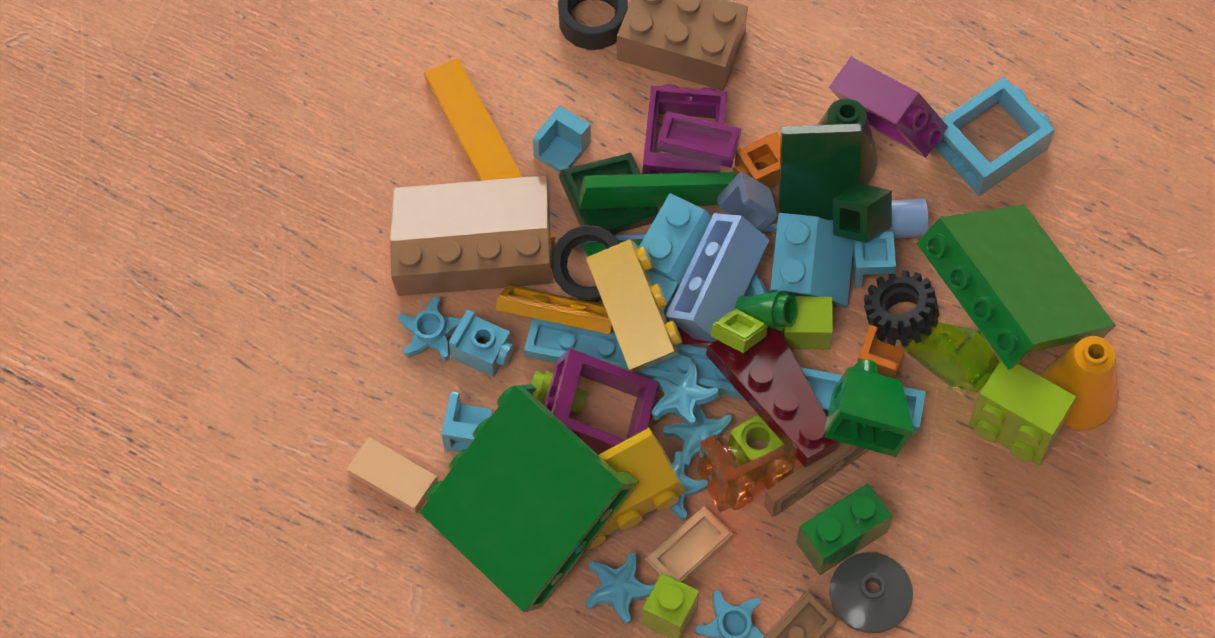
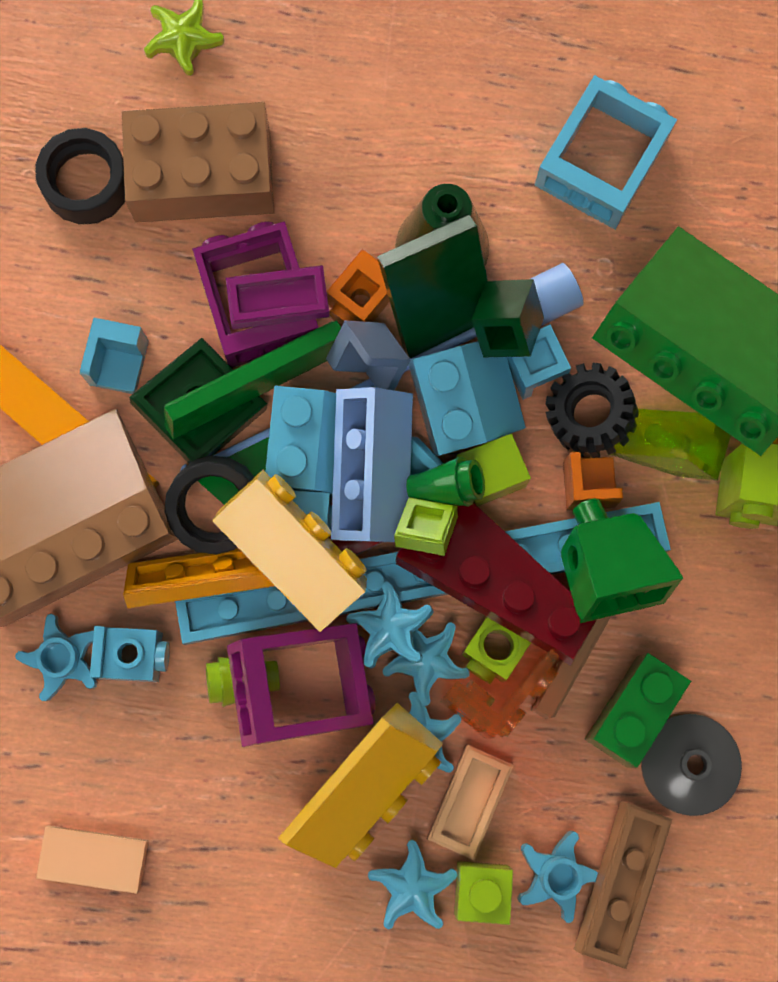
camera: 25 degrees left, 15 degrees up
(460, 423) = (153, 762): medium azure panel -> none
(525, 498) = (263, 849): green panel -> none
(890, 106) = (483, 168): magenta window -> none

